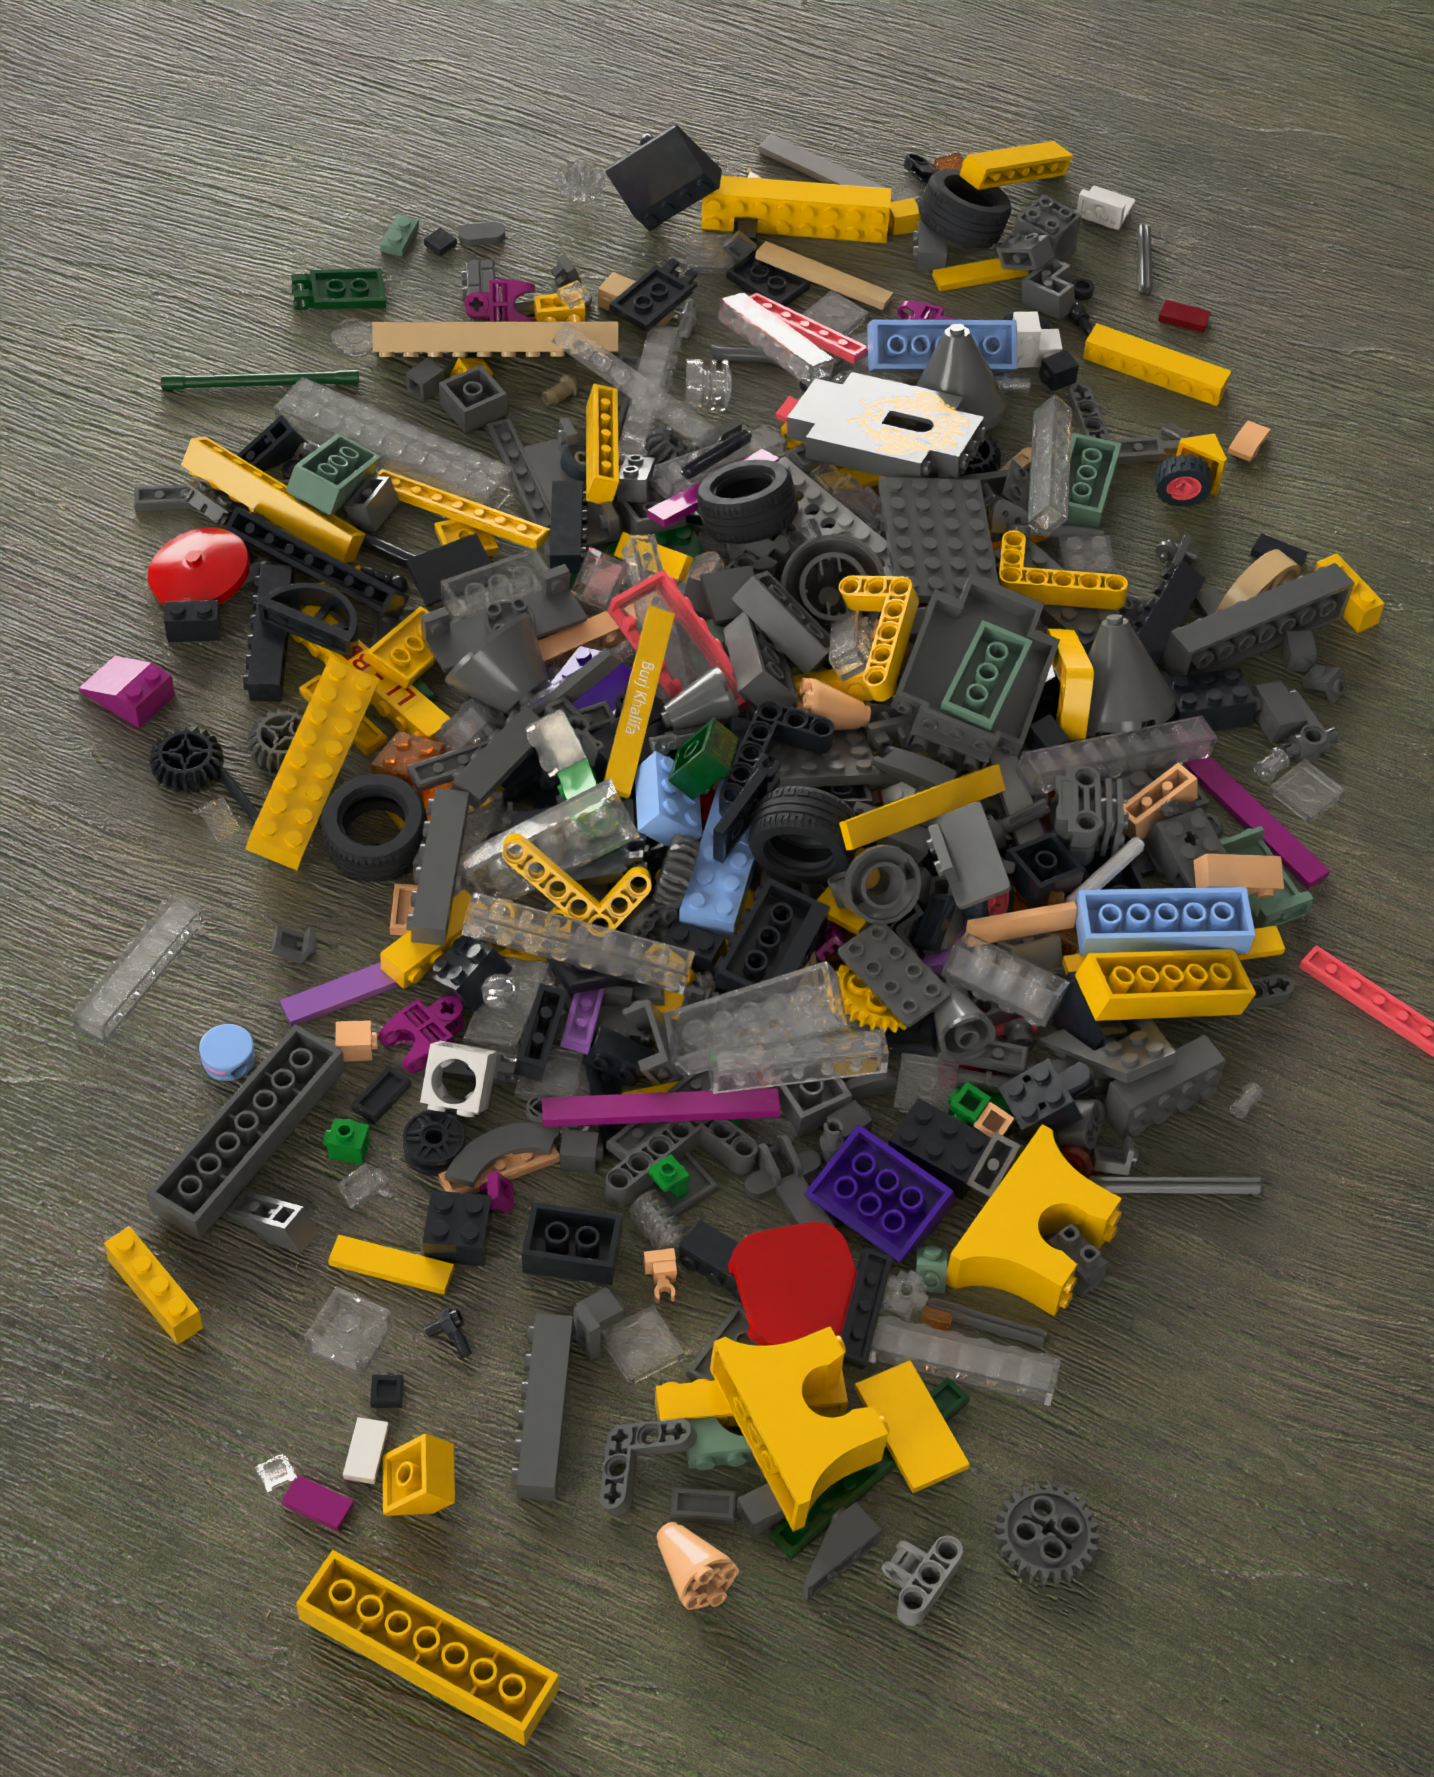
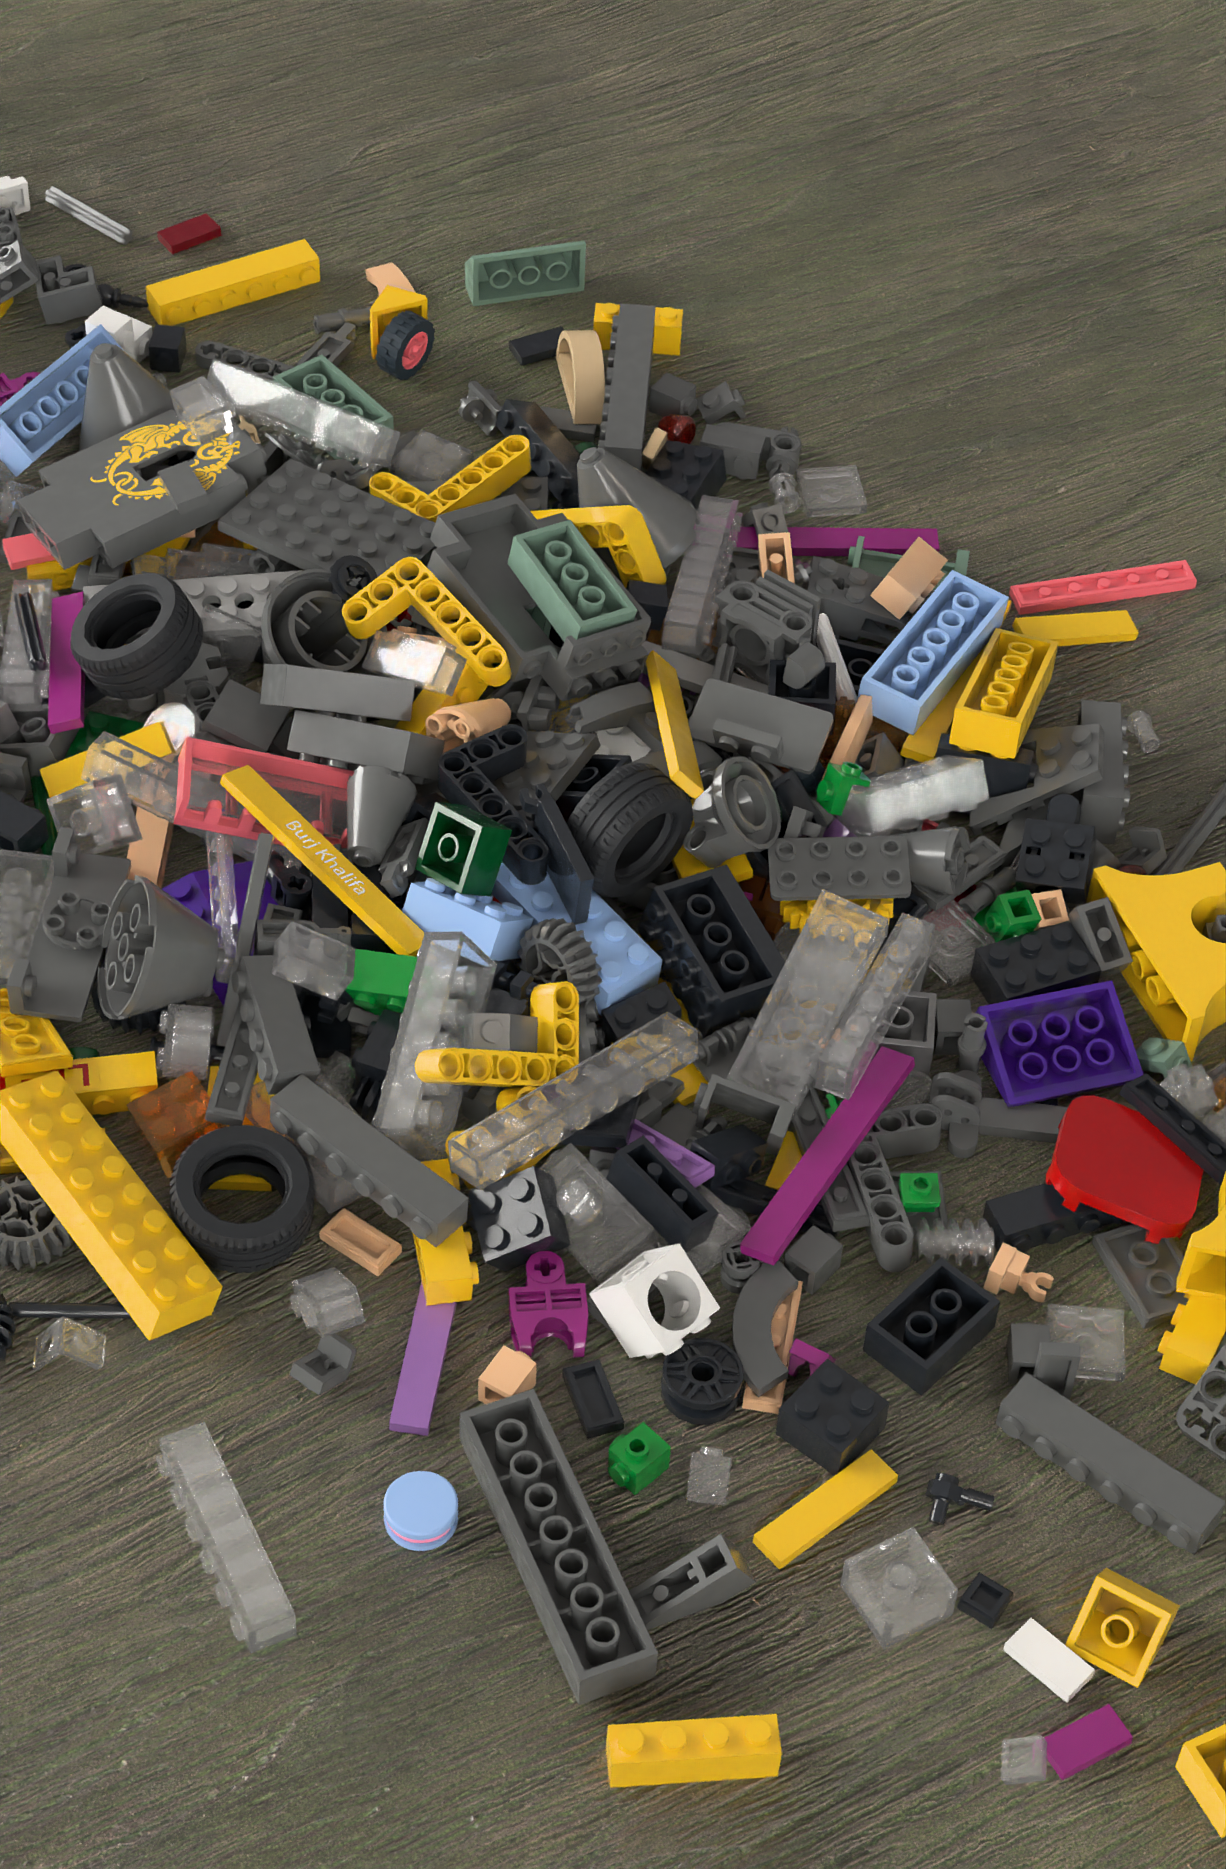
camera: 55 degrees left, 5 degrees down
(333, 914) = (327, 1302): none -> clear brick
(582, 870) = (500, 1032): none -> dark grey slope
(872, 558) = (349, 568): none -> black gear
(884, 442) = (183, 487): none -> dark grey tile
(914, 932) = (801, 825): none -> dark grey tile
(963, 408) = (203, 409): none -> clear brick
(970, 927) = (837, 784): none -> green bracket
(1051, 848) = (803, 666): none -> dark grey brick
(1221, 661) = (653, 447): none -> tan tile
(1227, 768) = (766, 519): none -> dark grey bracket
(1265, 670) = (678, 428): none -> clear red cone
(1306, 1005) = (1080, 627): none -> yellow tile
(1333, 503) = (526, 273): none -> sand green slope

